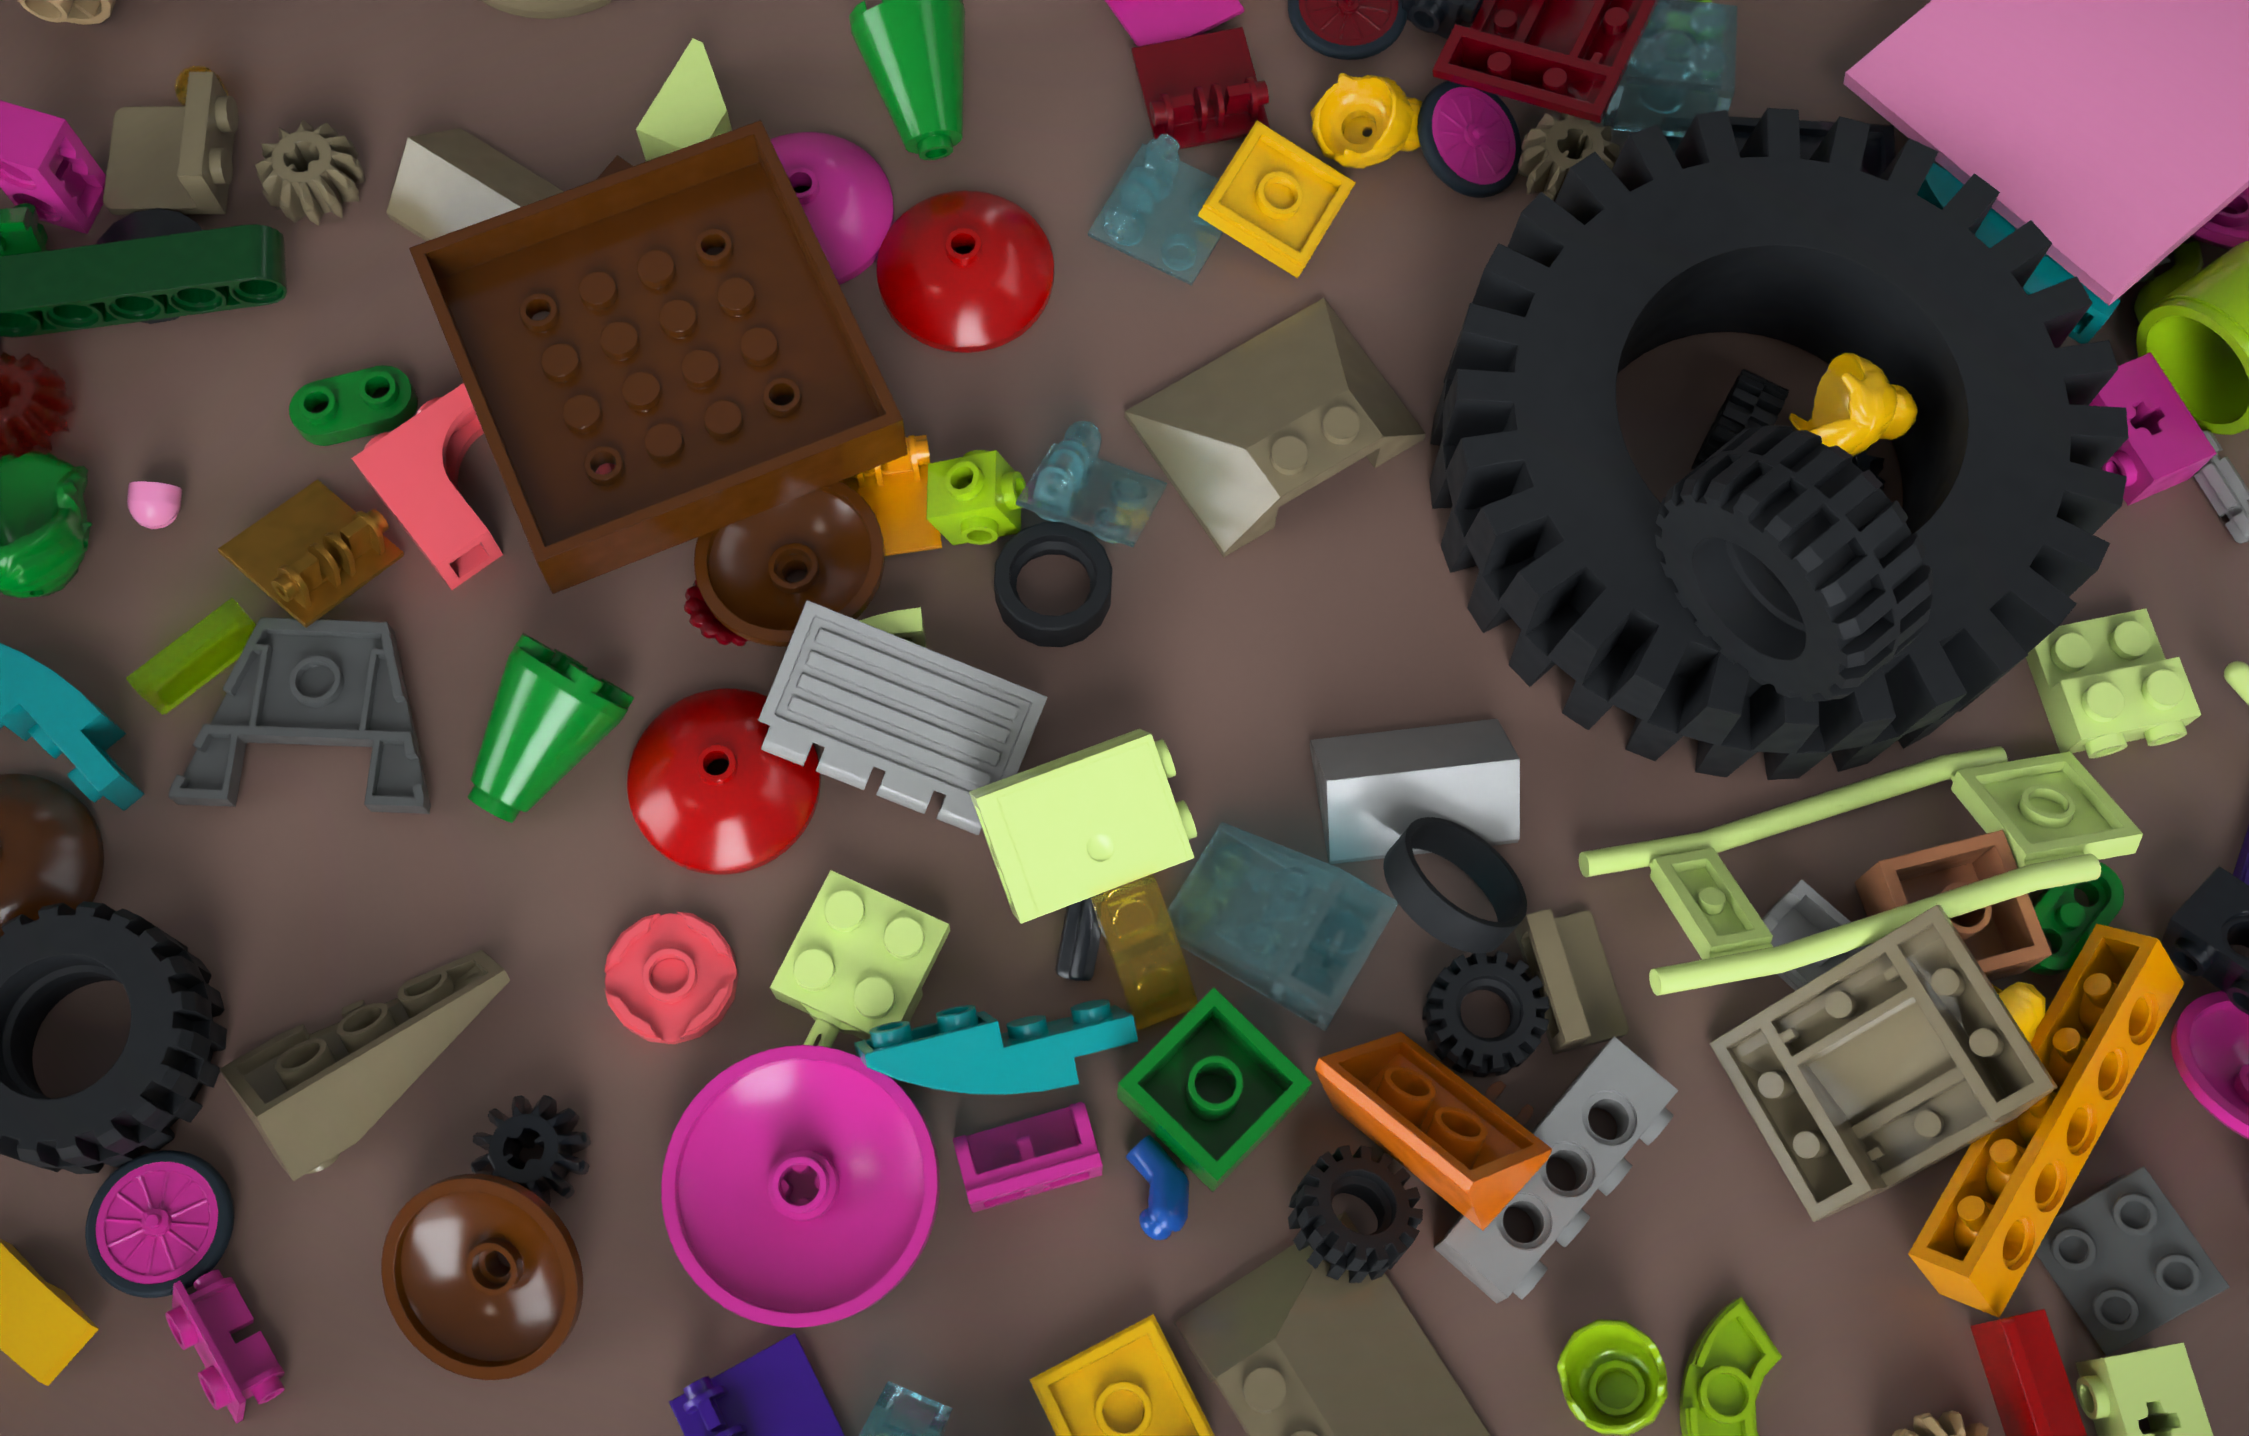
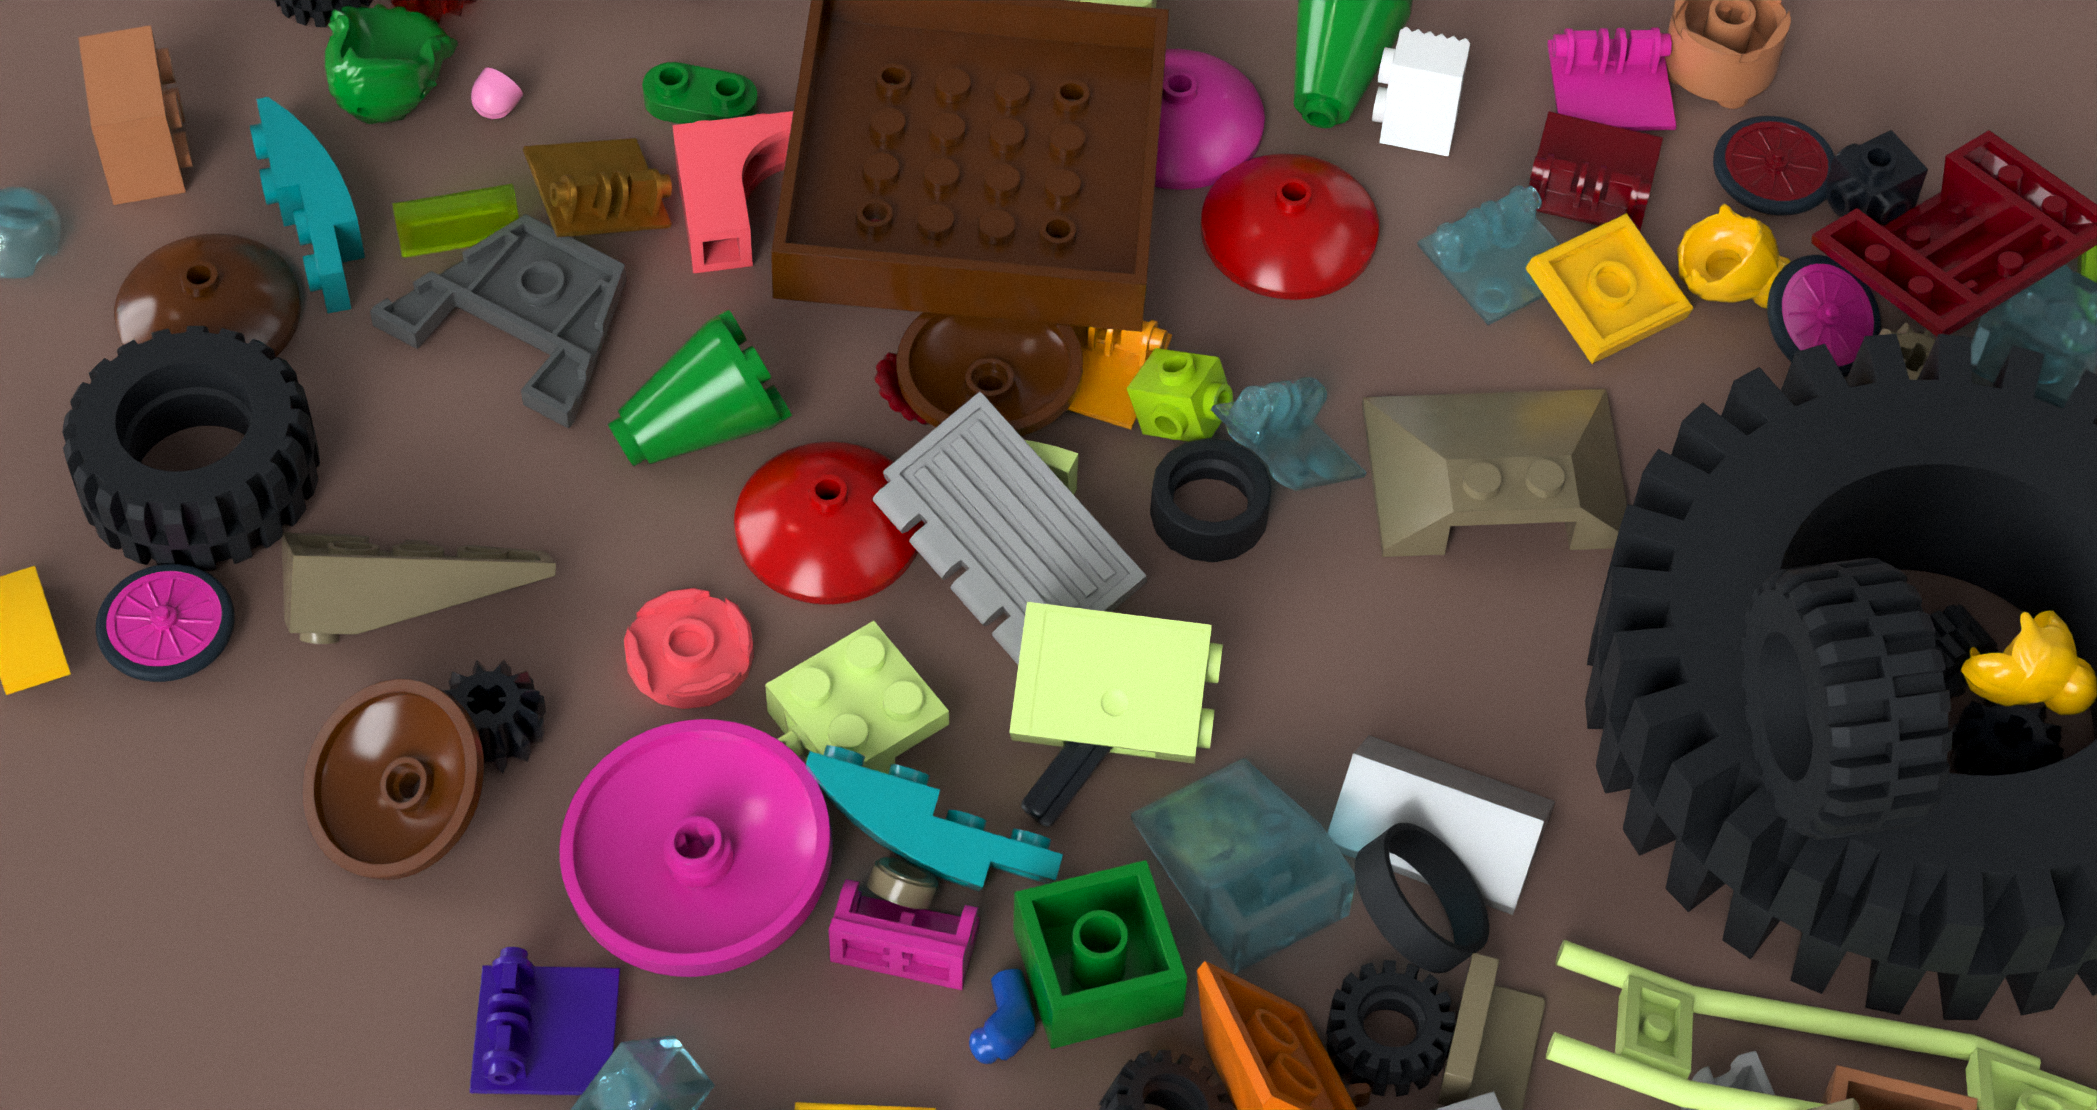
camera: 30 degrees right, 15 degrees down
(232, 1369) = (151, 757): dark pink hinge -> none
(1000, 1115) = (902, 883): none -> dark tan tile
(1019, 85) = (1422, 91): none -> white brick
(1145, 952) = (1107, 809): clear yellow slope -> none

